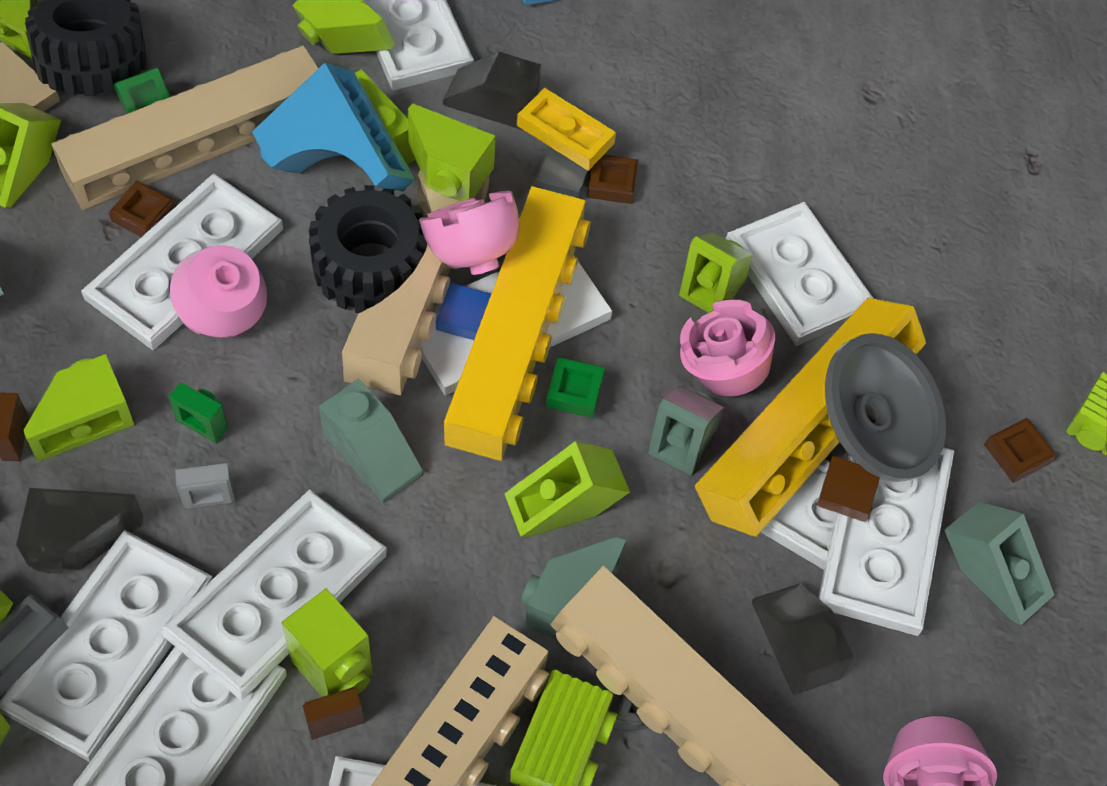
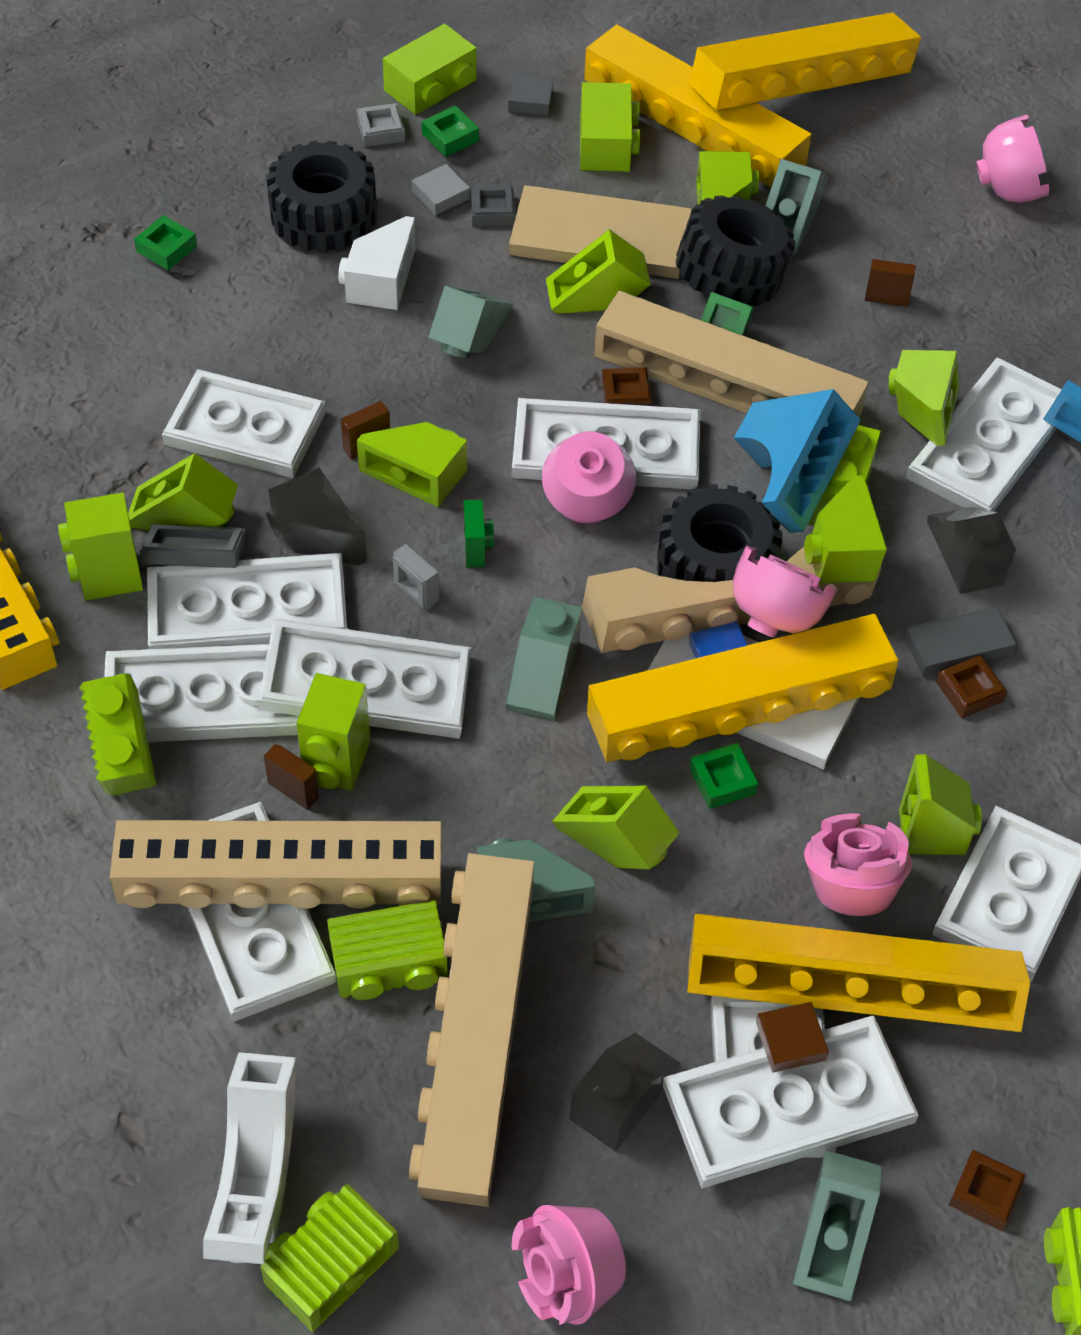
camera: 60 degrees right, 5 degrees down
(566, 129) = (975, 613): yellow plate -> none
(684, 428) = (752, 874): sand green slope -> none
(885, 407) = (922, 1018): dark grey dish -> none

